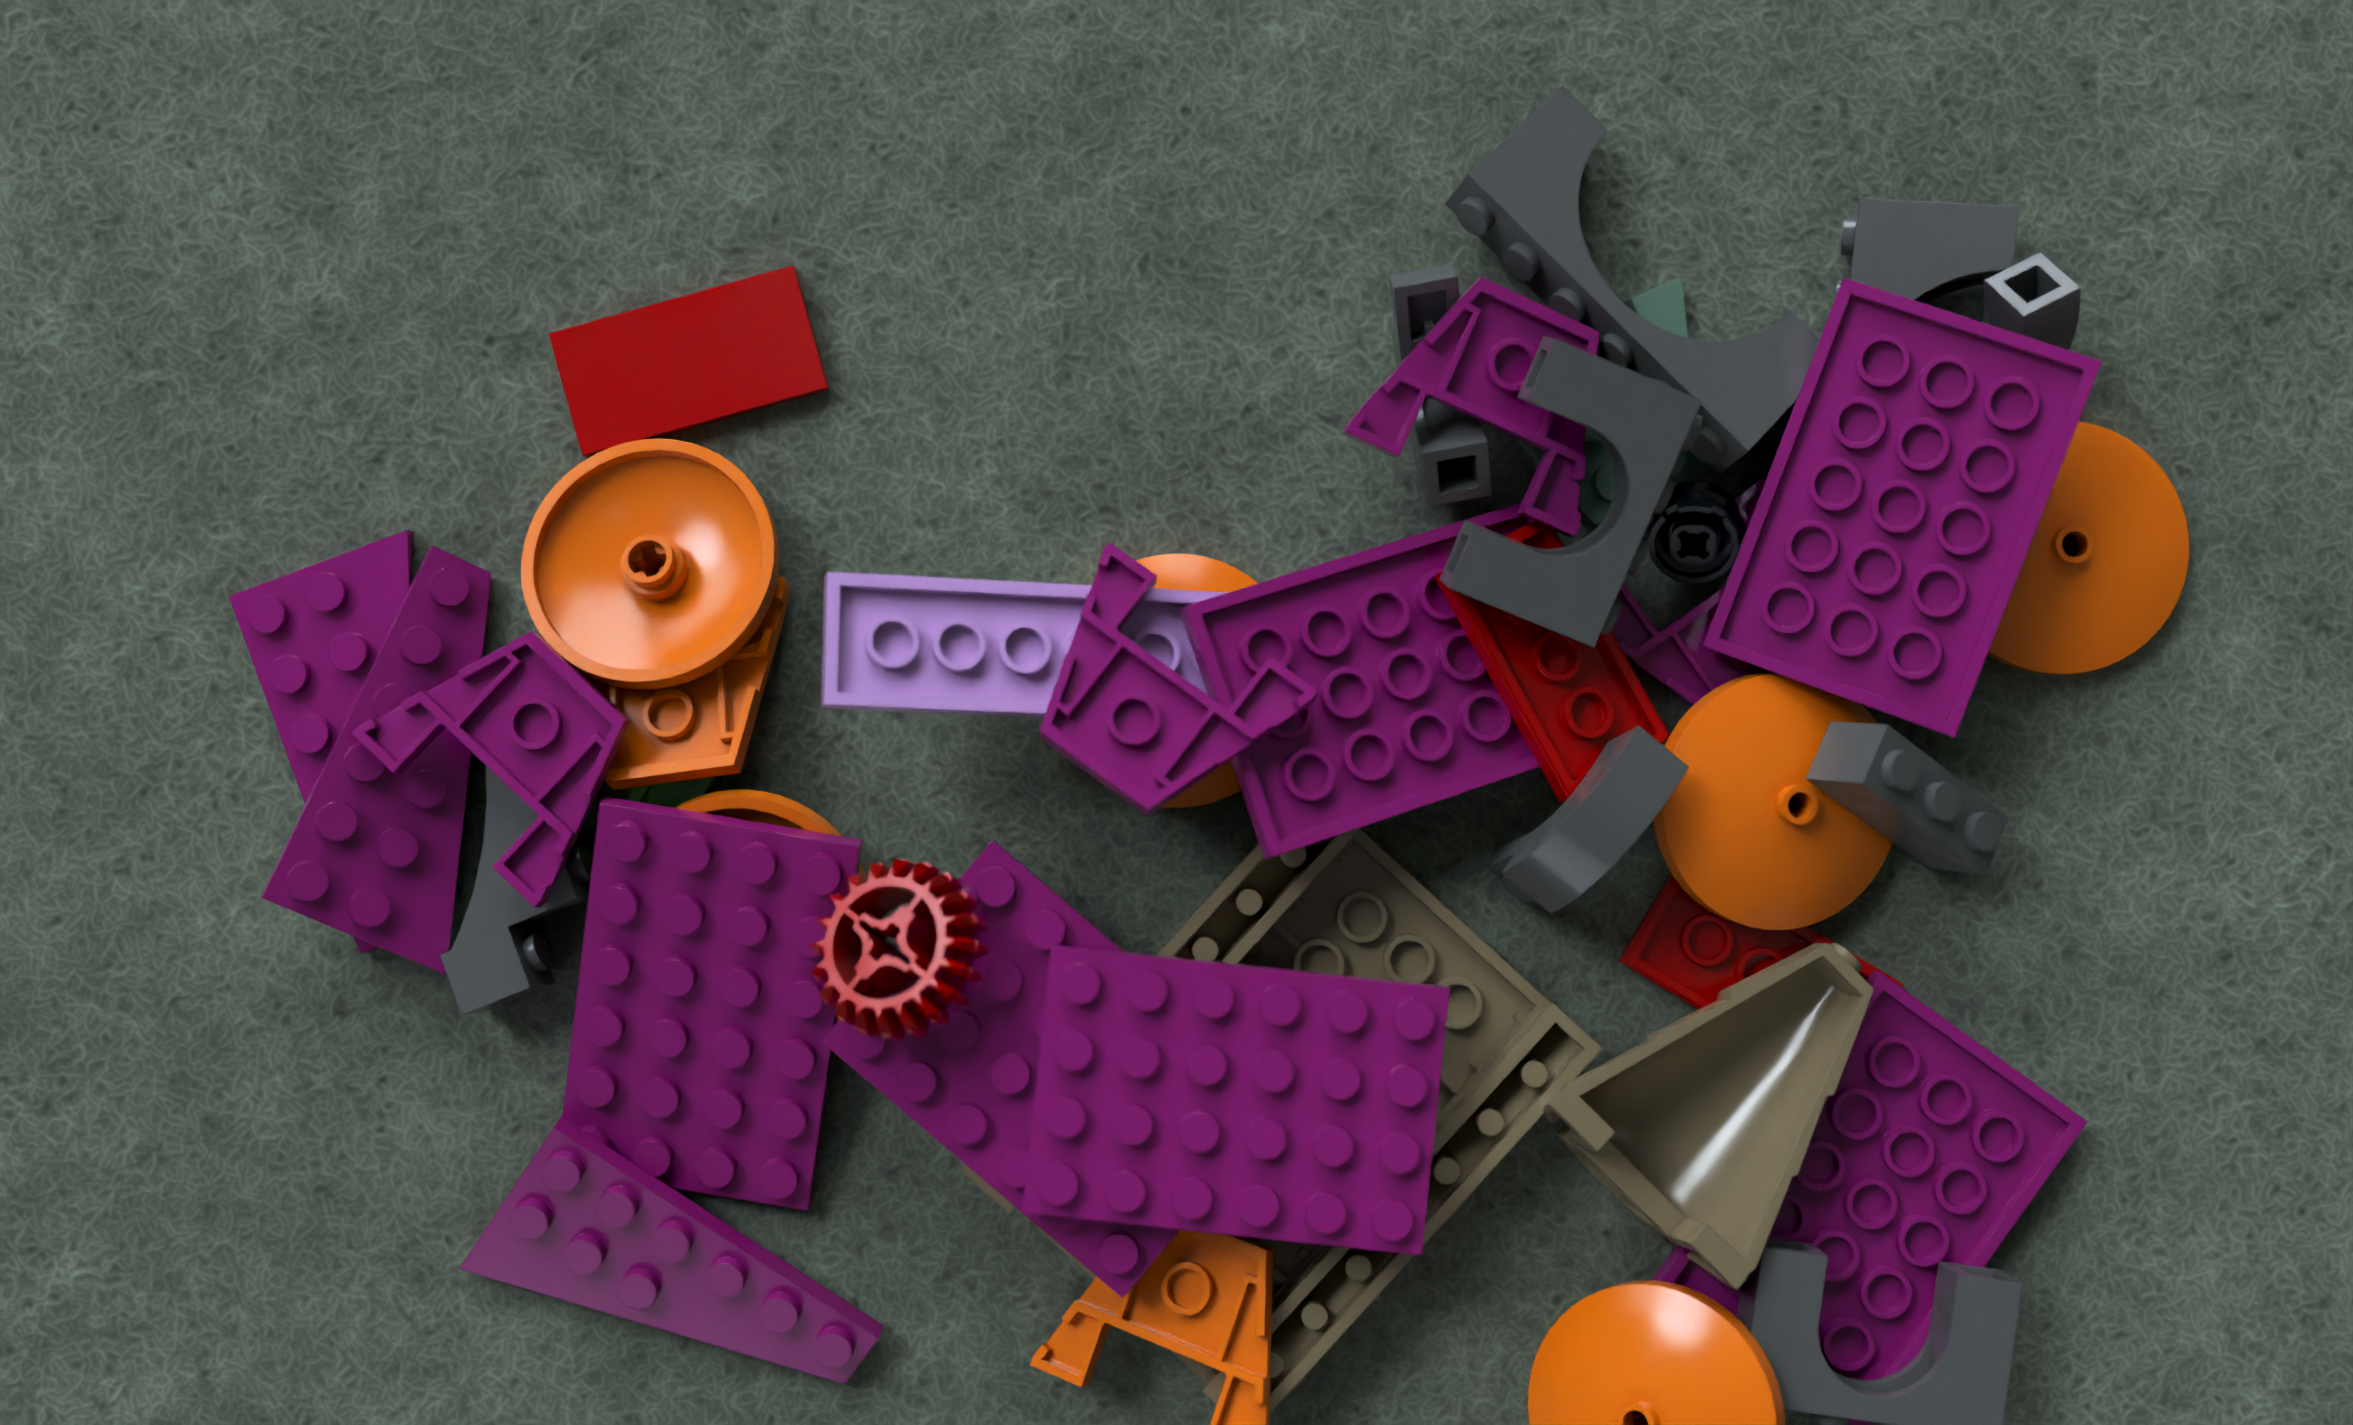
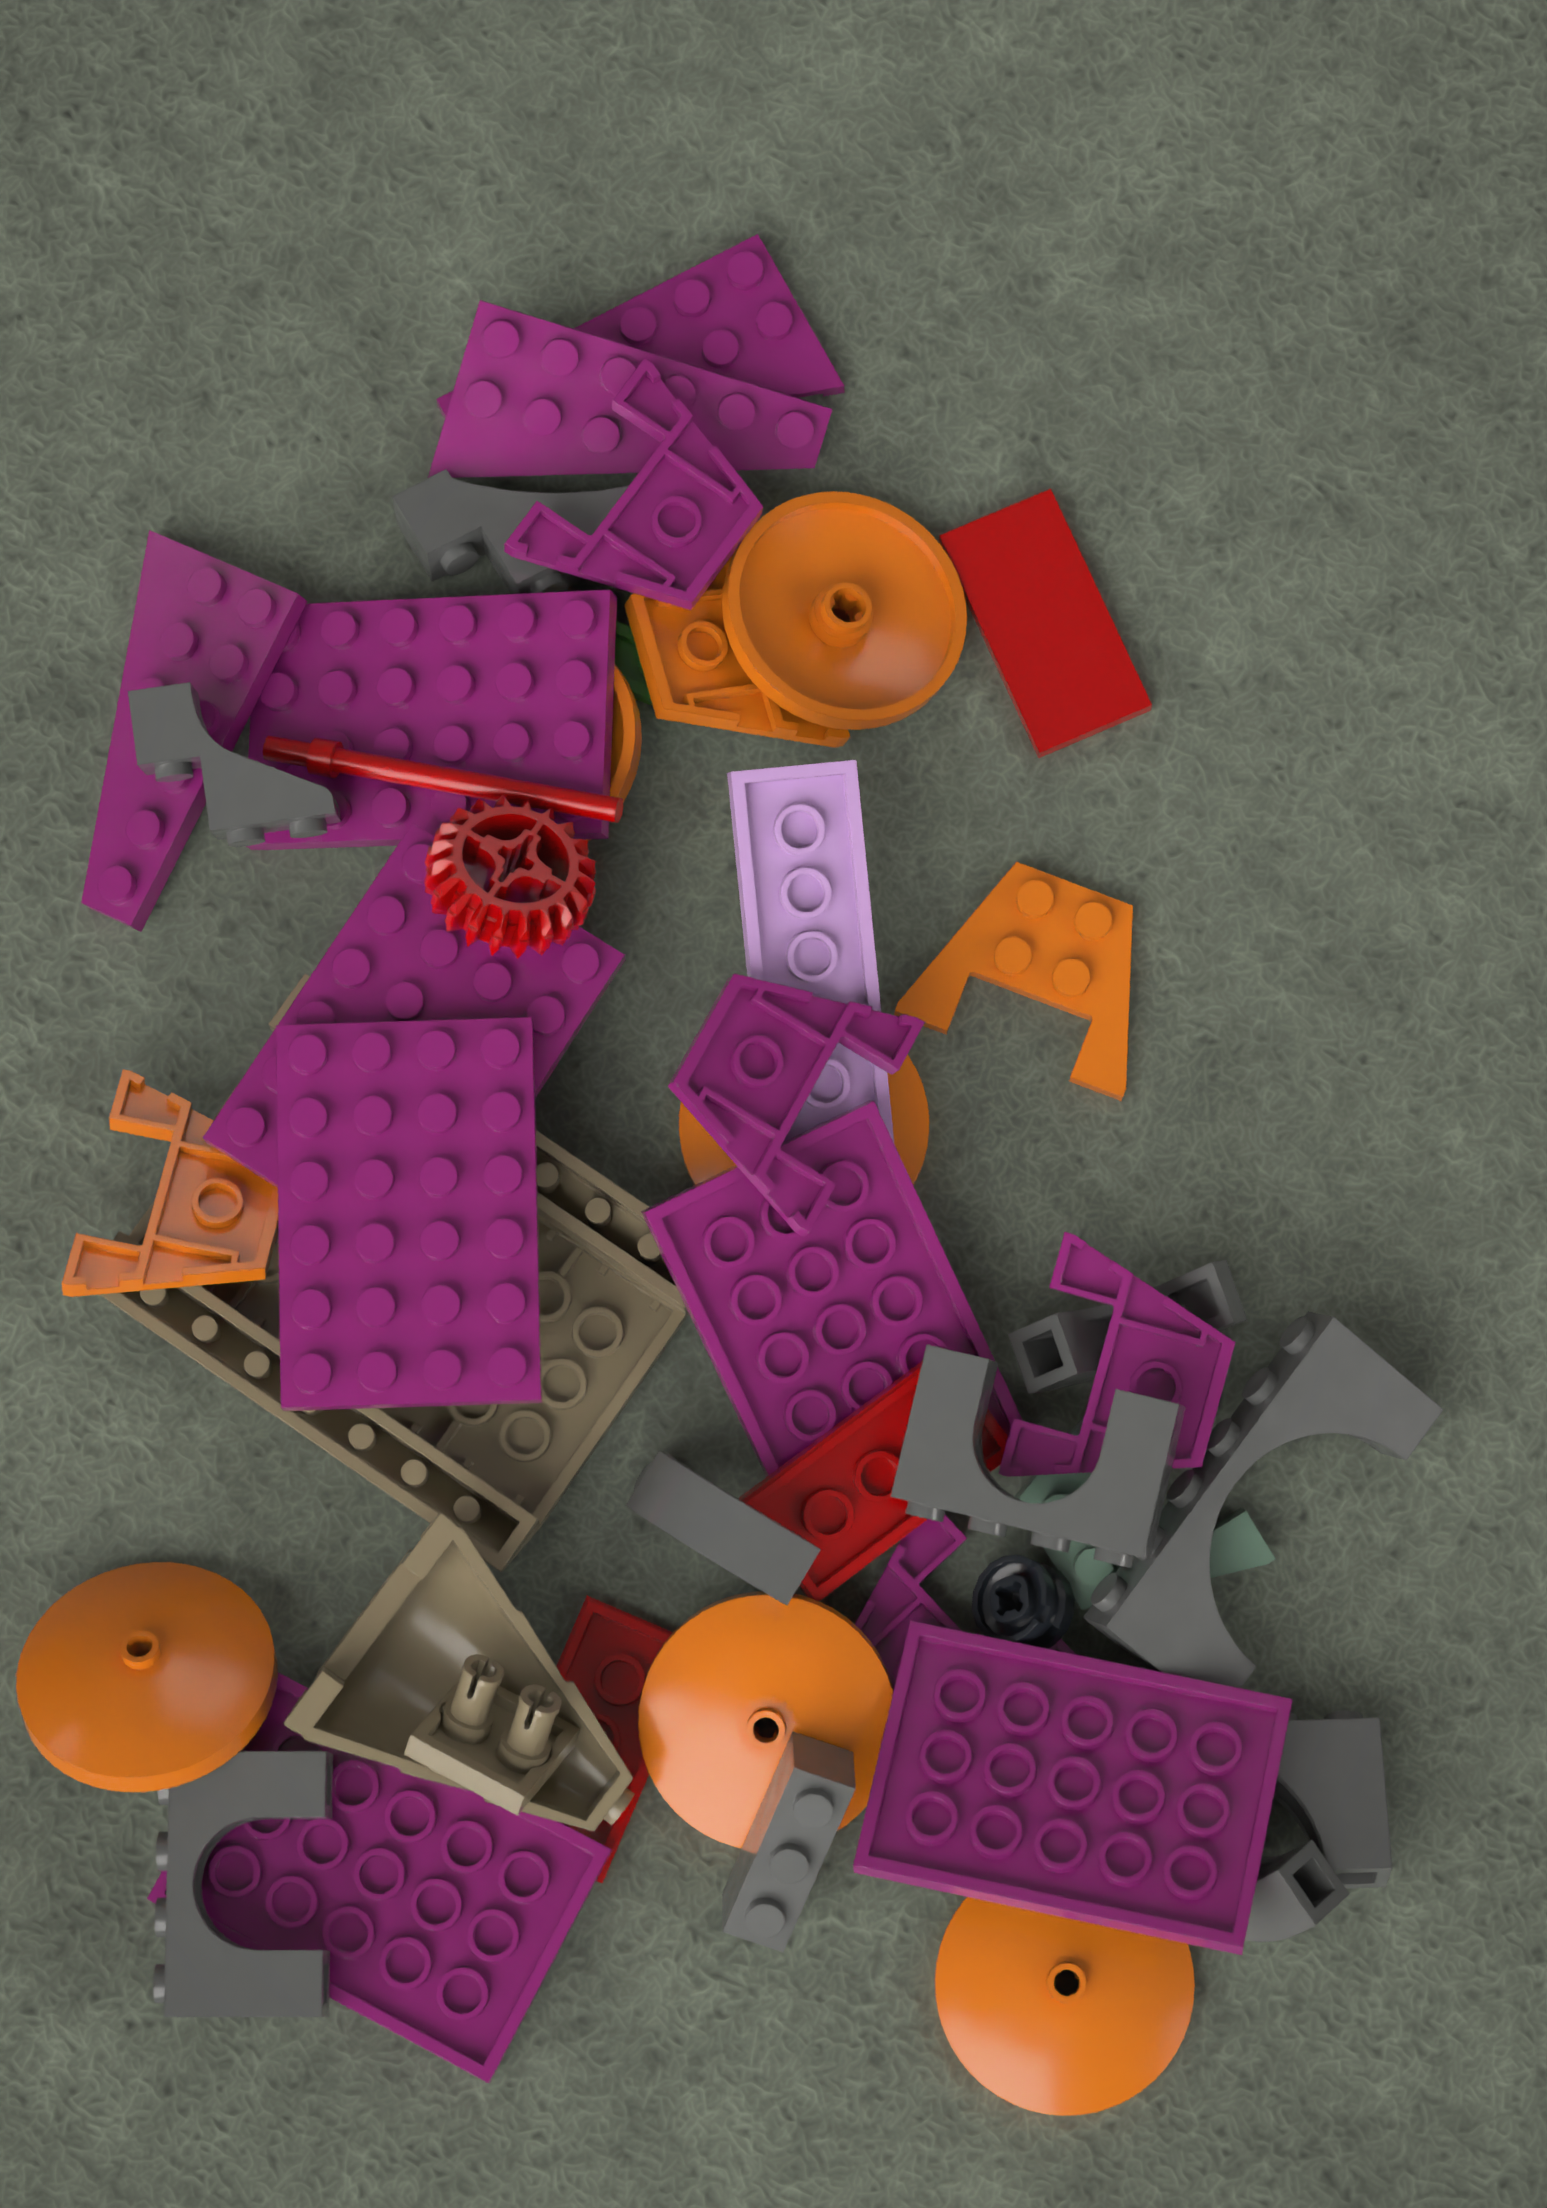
camera: 80 degrees right, 10 degrees down
(736, 1114) = (329, 758): none -> red bar
(764, 1216) = (240, 793): none -> dark grey arch
(1028, 406) = (1053, 947): none -> orange wing
(1775, 1079) = (493, 1738): none -> dark tan plate

